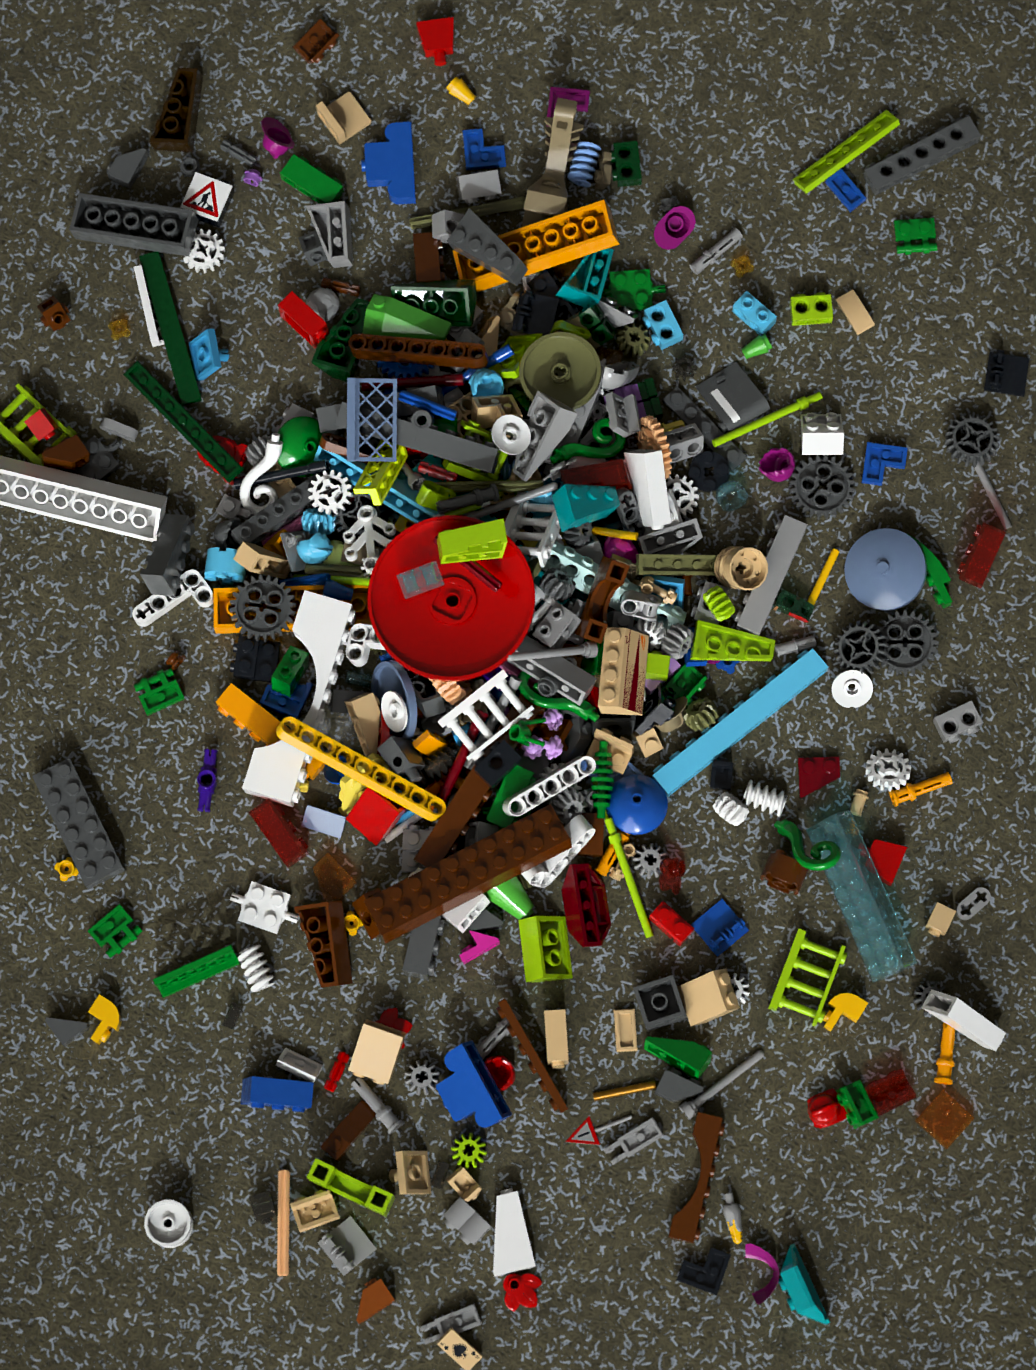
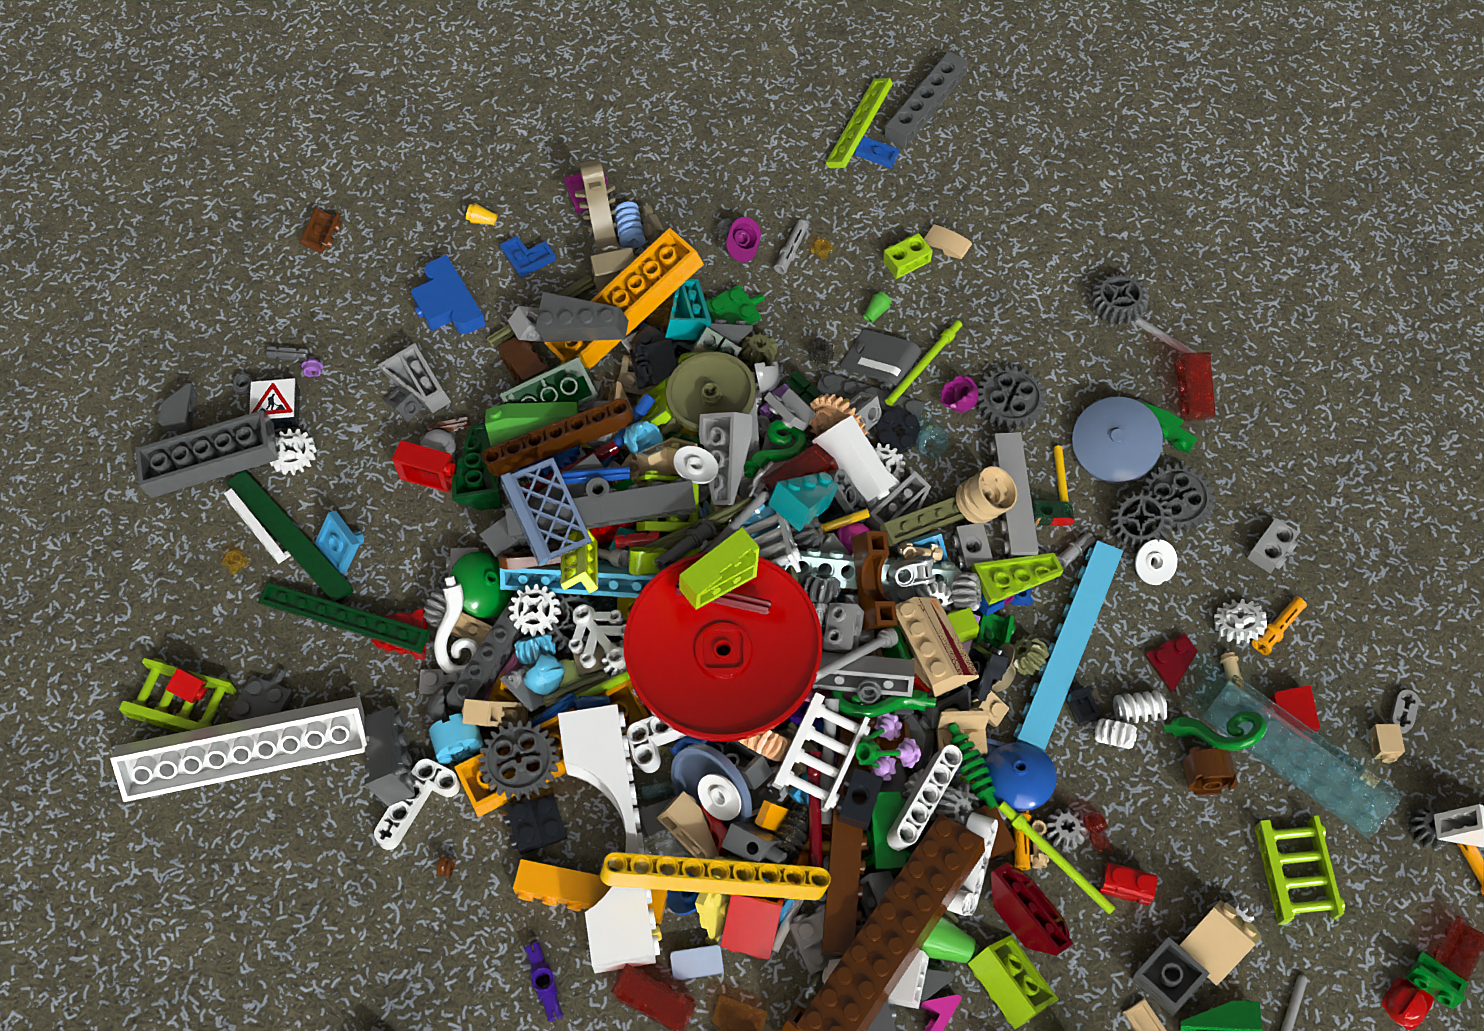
camera: 30 degrees left, 15 degrees down
(53, 314) = (156, 575): reddish brown brick -> none
(66, 455) = (228, 705): reddish brown slope -> none
(119, 429) = (276, 657): light grey beam -> none
(160, 697) = (449, 912): green plate -> none
(180, 113) = (213, 346): dark brown wedge -> none
(276, 137) = (319, 324): magenta piece -> none
(286, 705) = (588, 848): blue wing -> none
(290, 671) = (579, 815): green brick -> none
(311, 180) = (370, 345): green brick -> none
(311, 468) = (503, 596): black piece -> none
(343, 117) = (377, 281): tan bracket -> none
(420, 579) = (682, 636): clear light blue brick -> none
(437, 38) = (435, 182): red torso -> none
(479, 185) = (539, 279): light grey brick -> none
(630, 164) = (669, 209): dark green brick -> none
(666, 324) = (782, 322): medium azure brick -> none
(719, 603) = (986, 536): lime gear -> none
(719, 927) = (1177, 863): blue hinge -> none
(754, 313) = (858, 279): medium azure brick -> none
(822, 434) = (983, 352): white slope -> none
(844, 1004) = (1356, 879): yellow brick -> none
(881, 456) = (1046, 352): blue plate -> none
(915, 230) = (957, 158): green plate -> none
(1006, 374) = (1111, 235): black hinge -> none

